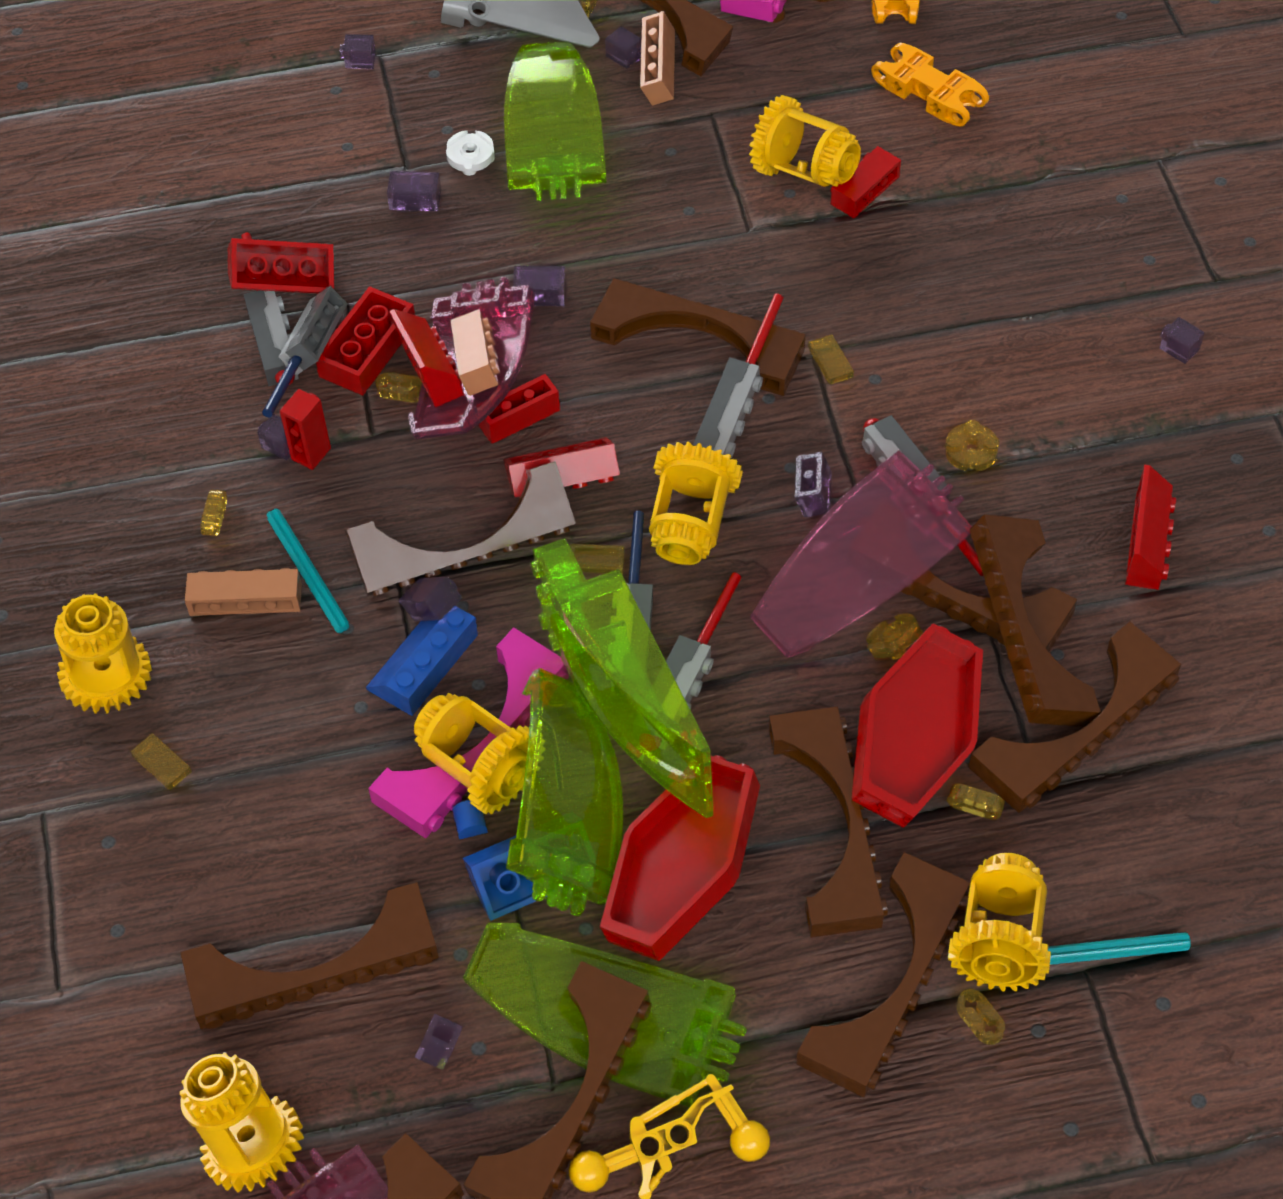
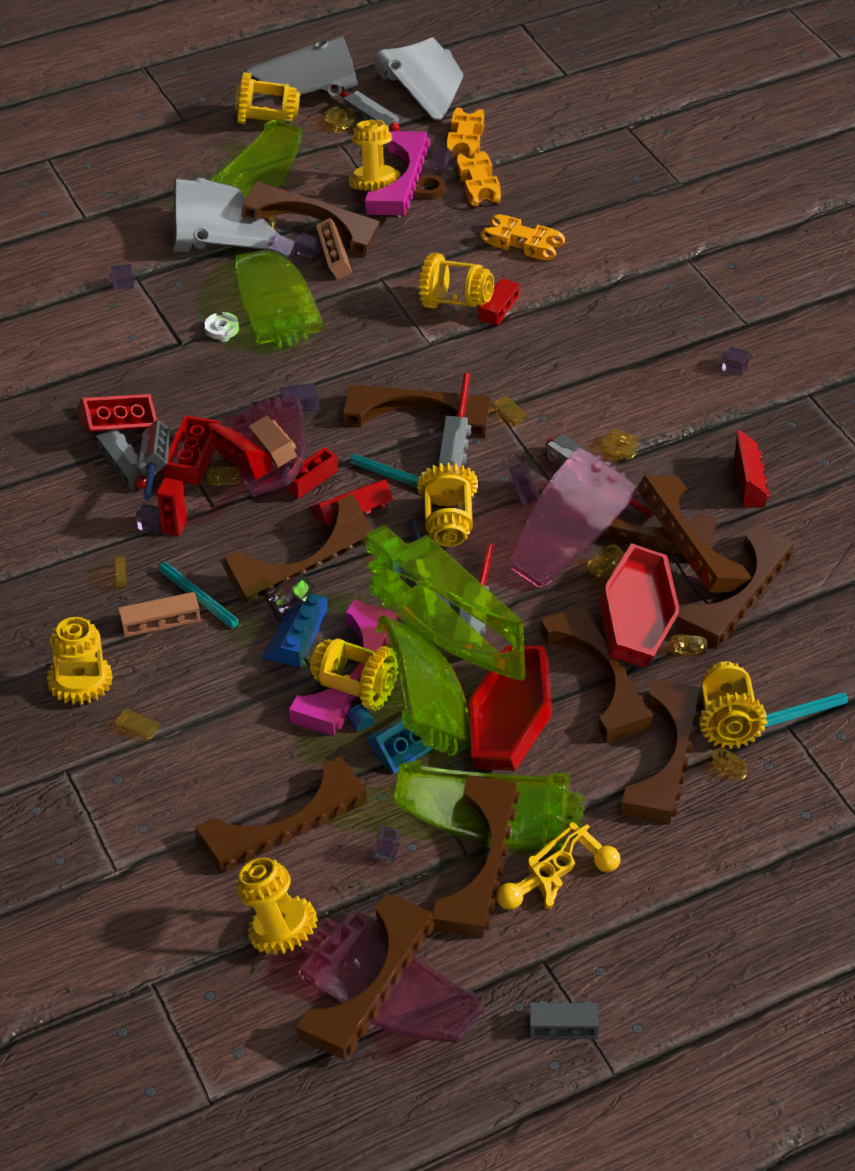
camera: 15 degrees left, 10 degrees down
(414, 191) = (191, 356): clear purple brick -> none
(586, 39) = (281, 244): none -> clear purple brick
(623, 420) = (384, 470): none -> teal axle

